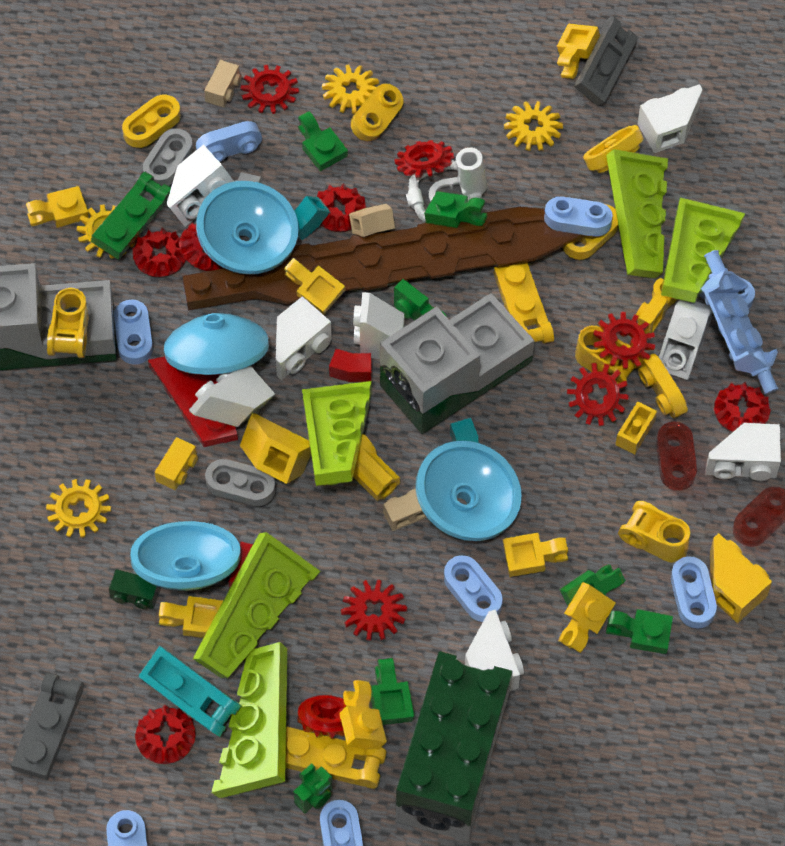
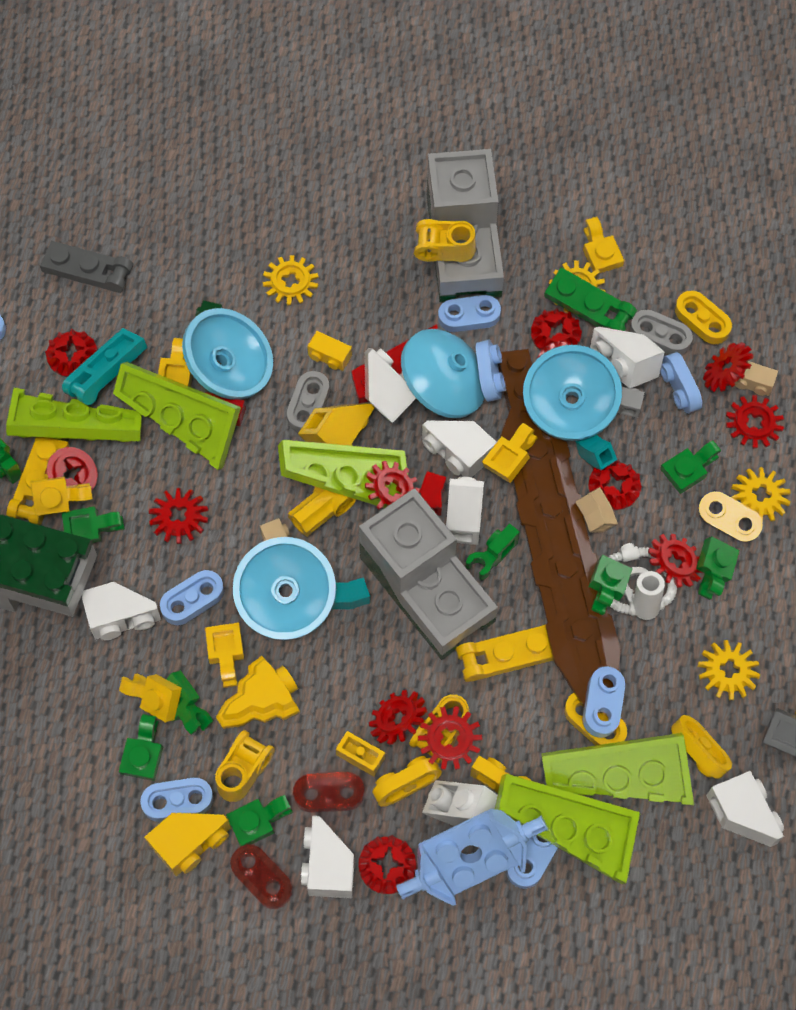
camera: 90 degrees right, 5 degrees up
(196, 305) = (490, 378): none -> light blue plate
(227, 99) = (738, 356): none -> red gear
(368, 395) = (384, 477): none -> gear
(427, 126) = (717, 564): none -> green plate
(579, 518) = (260, 696): none -> yellow rock
(706, 520) = (254, 822): none -> green plate

